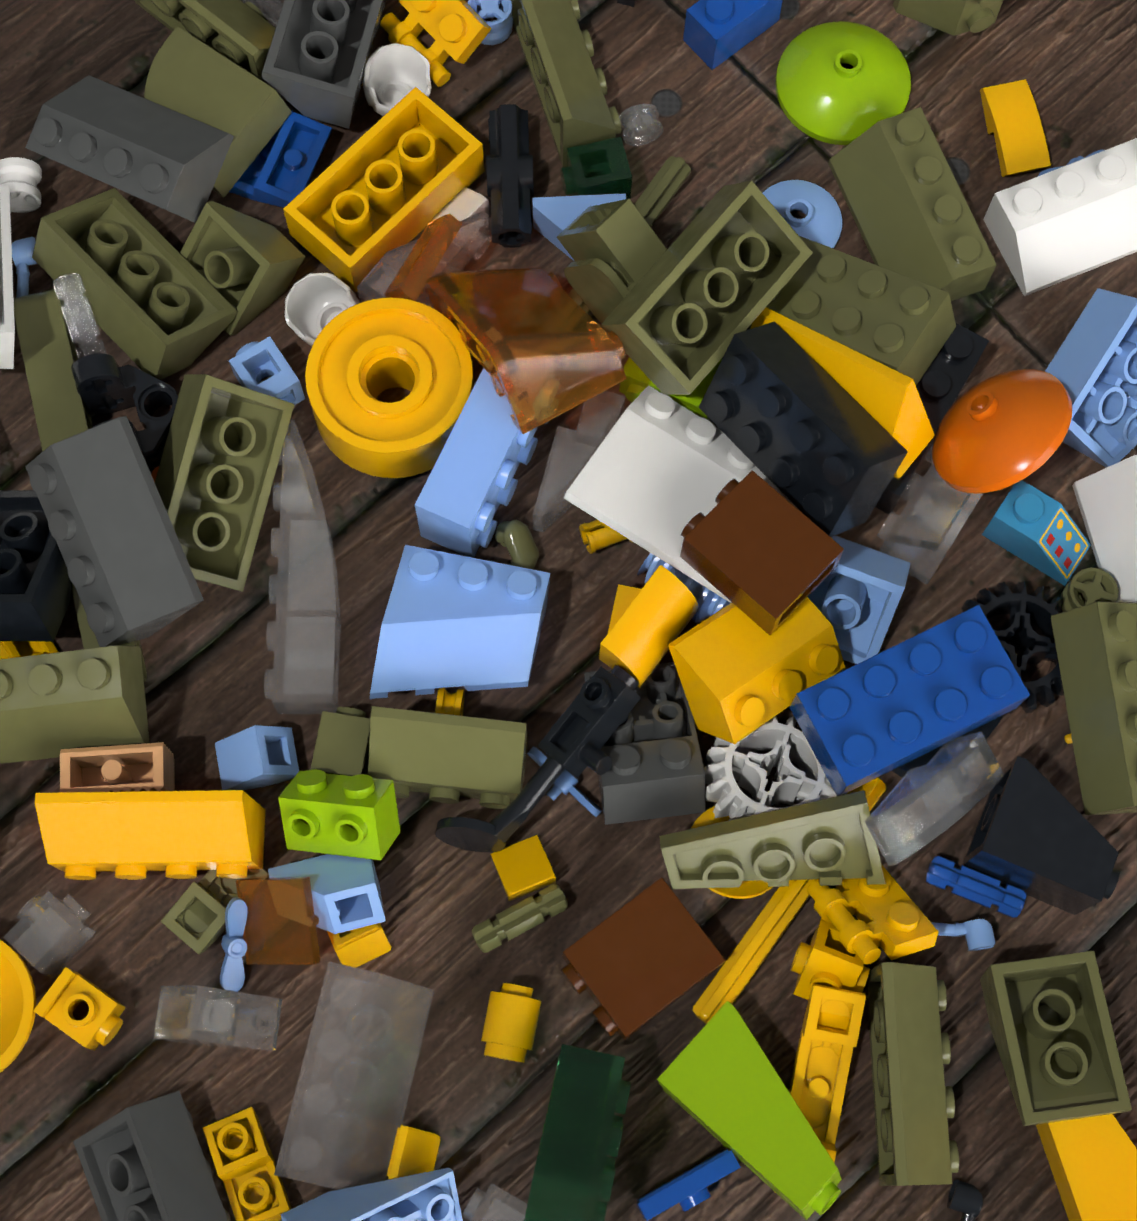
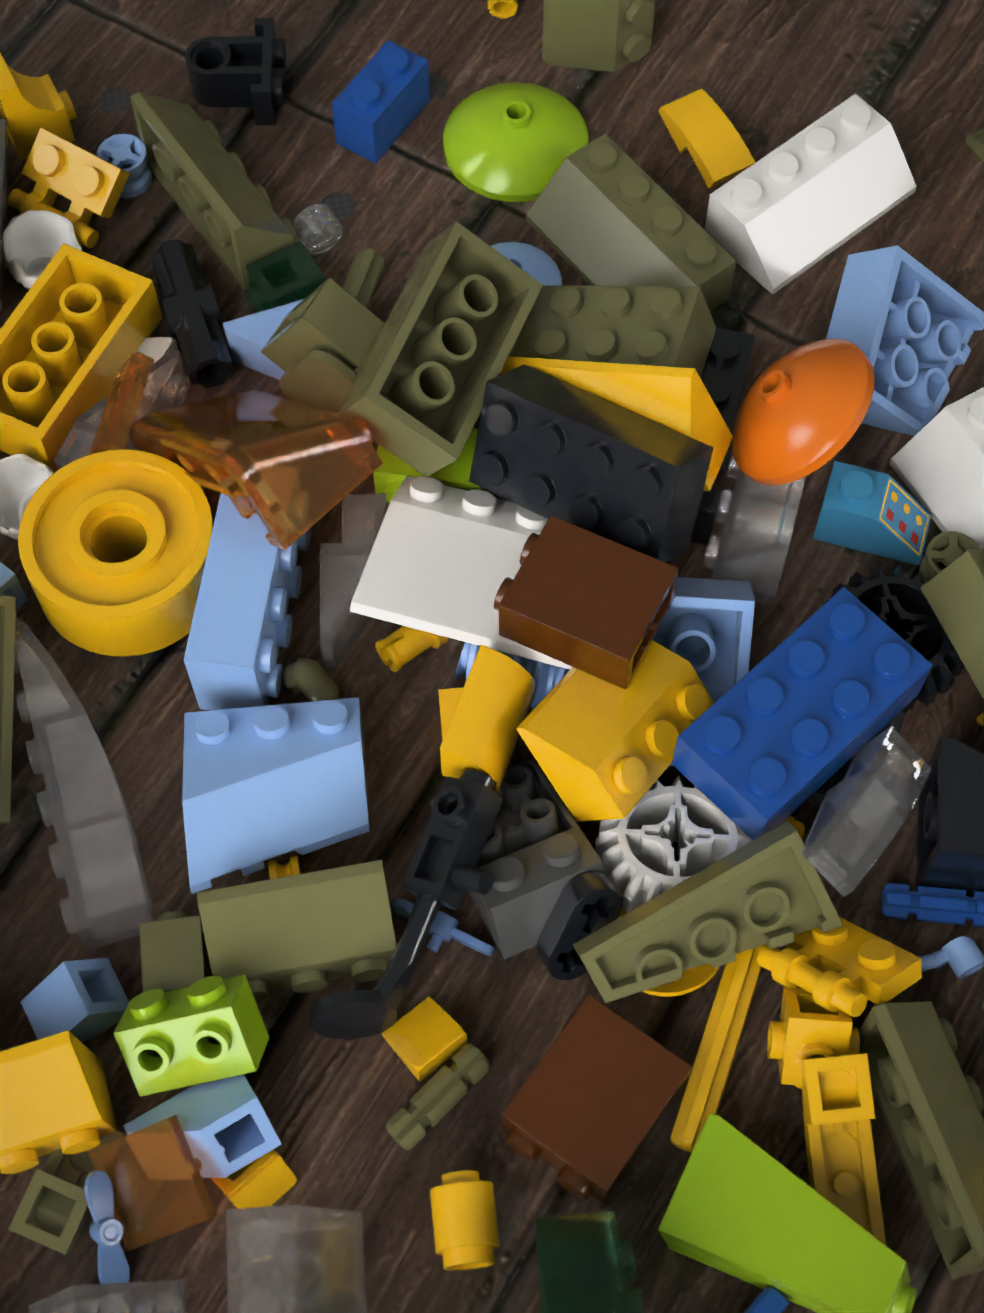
camera: 15 degrees left, 10 degrees down
(677, 808) = (572, 922): none -> black beam

